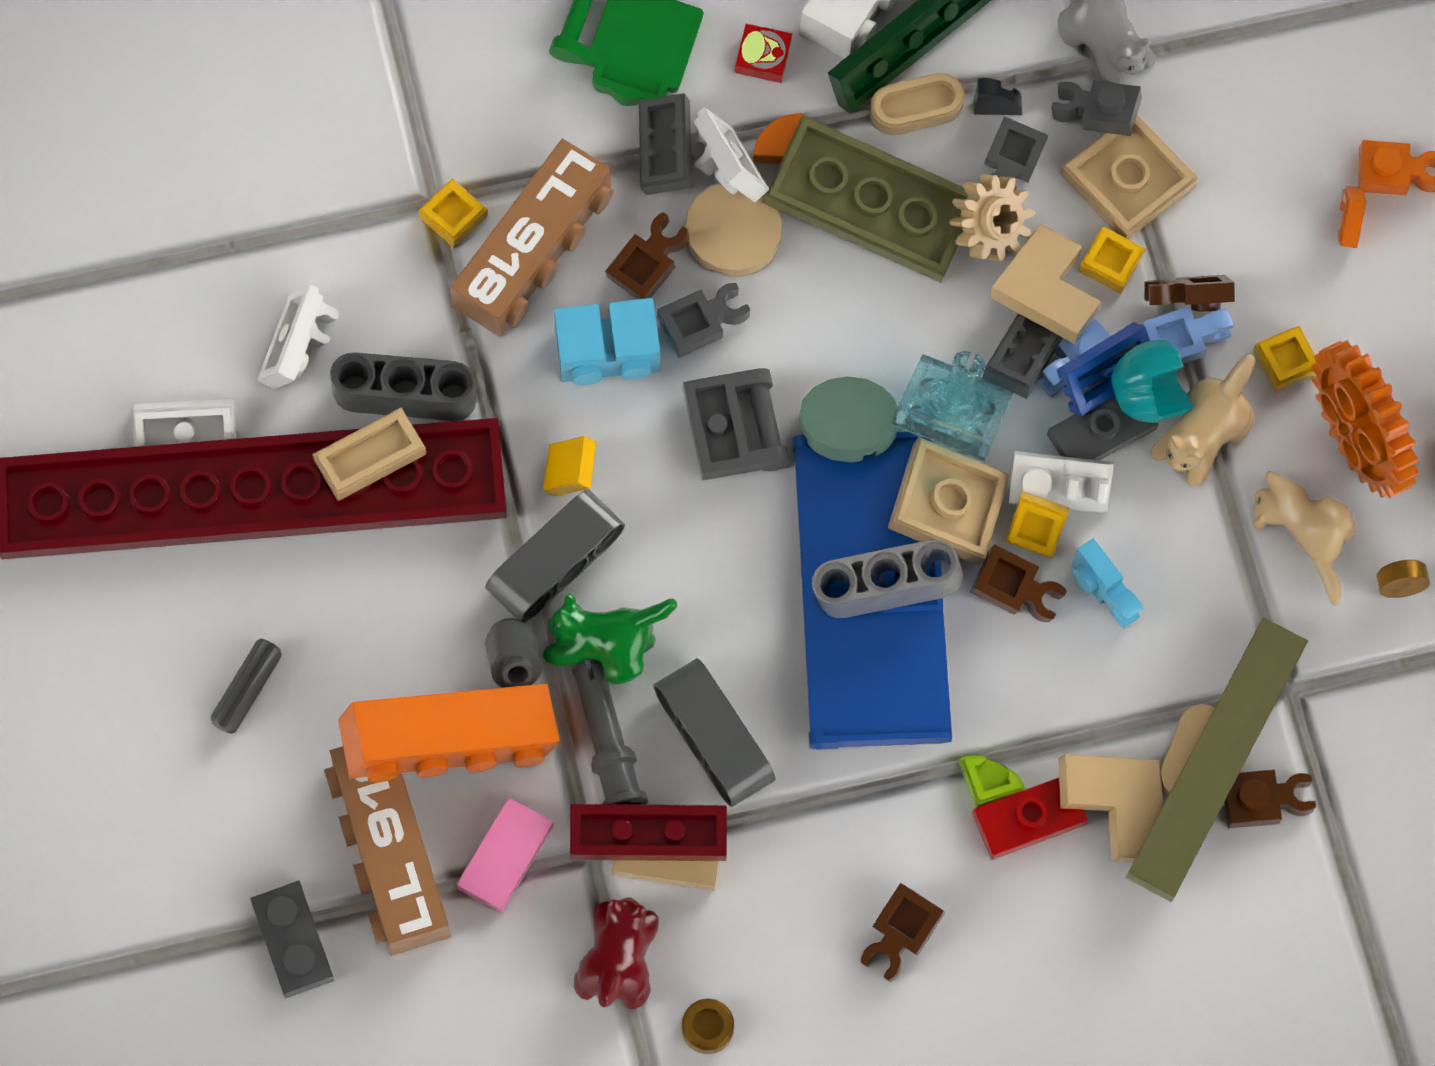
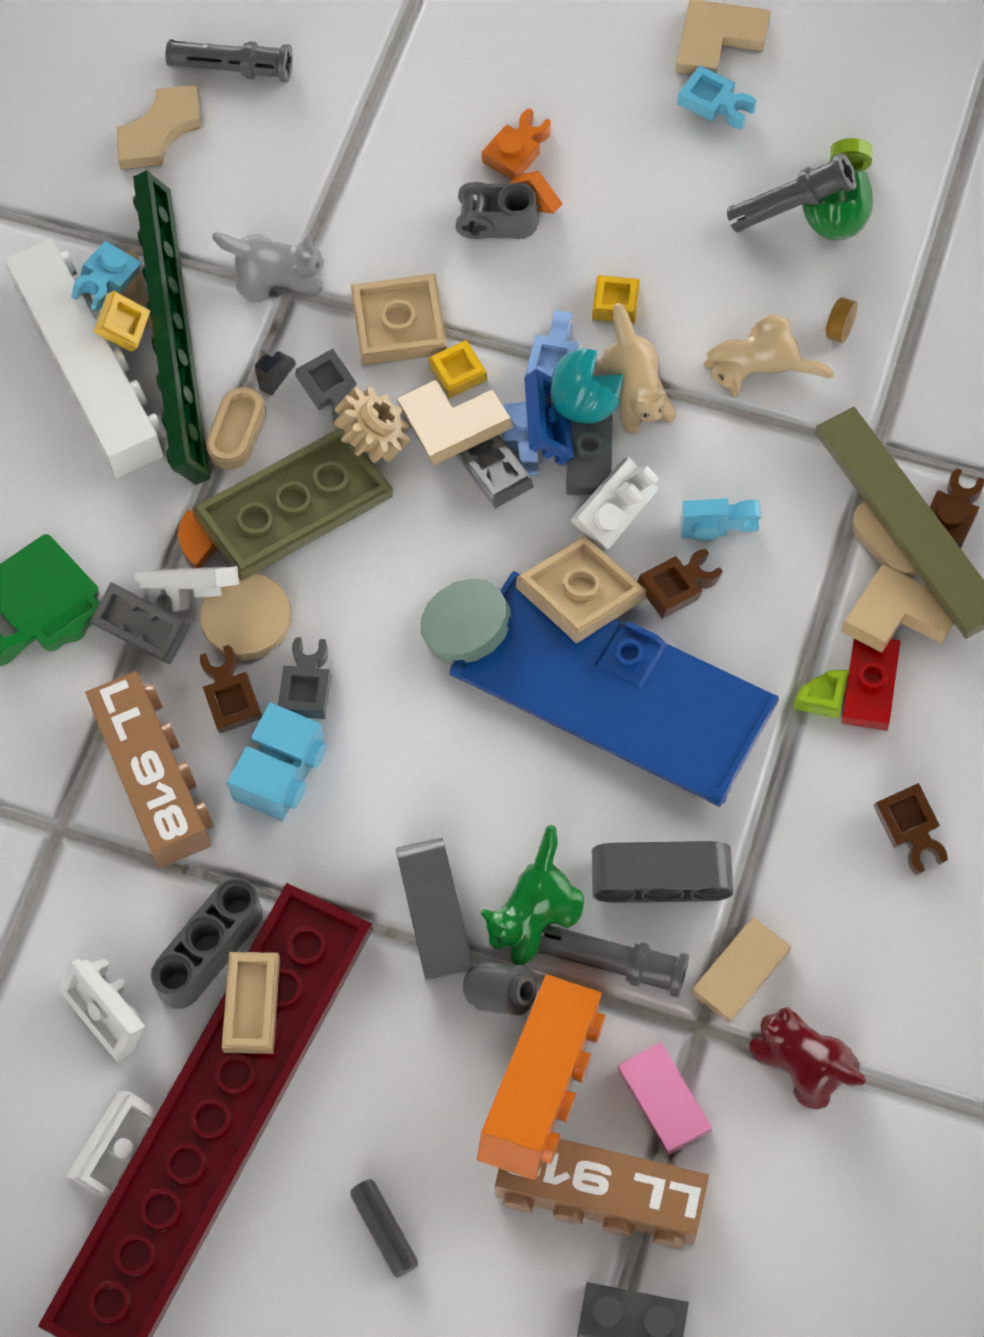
camera: 50 degrees left, 5 degrees down
(453, 213) = (80, 819): yellow tile -> none
(569, 466) = (364, 852): yellow tile -> none
(648, 832) = (720, 969): dark red plate -> none
(707, 1026) = (904, 1021): pearl gold tile -> none
(720, 429) = (408, 720): dark grey plate -> none
(763, 53) = (114, 510): tile -> none
(864, 569) = (625, 640): light grey beam -> none
(953, 405) = (507, 537): clear light blue plate -> none
(1037, 524) = (640, 538): yellow tile -> none
(1103, 109) = (335, 299): dark grey plate -> none
(1202, 292) = (528, 321): reddish brown plate -> none
(1300, 184) = (496, 211): none -> dark grey piece
(1365, 419) = (715, 261): orange gear -> none

